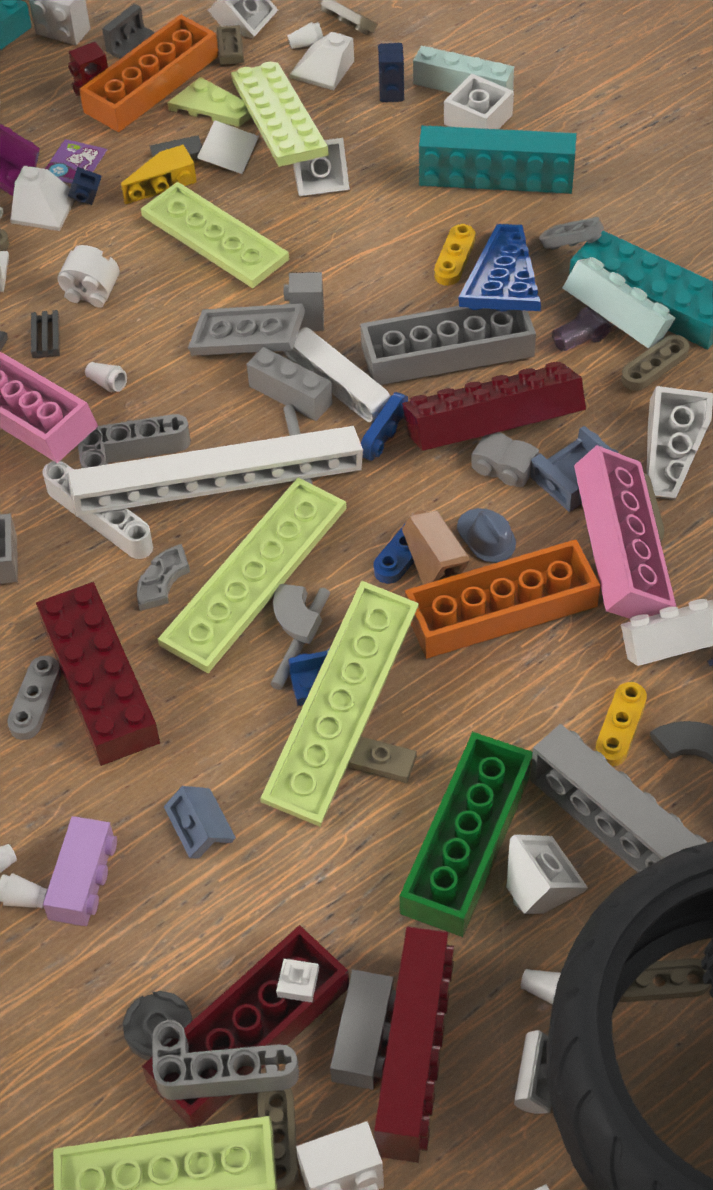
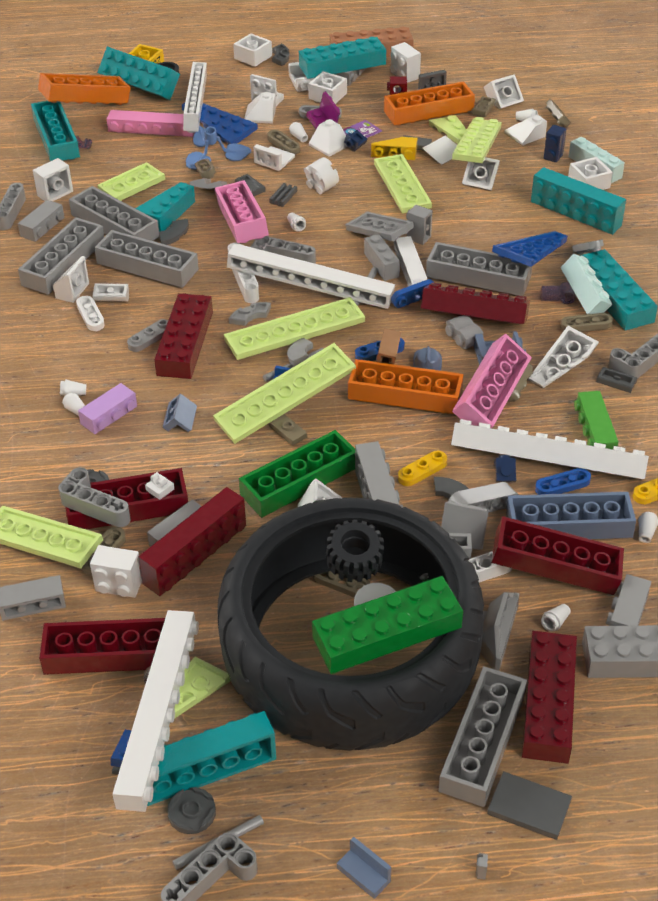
camera: 30 degrees right, 10 degrees down
(454, 255) = (527, 231): yellow plate -> none

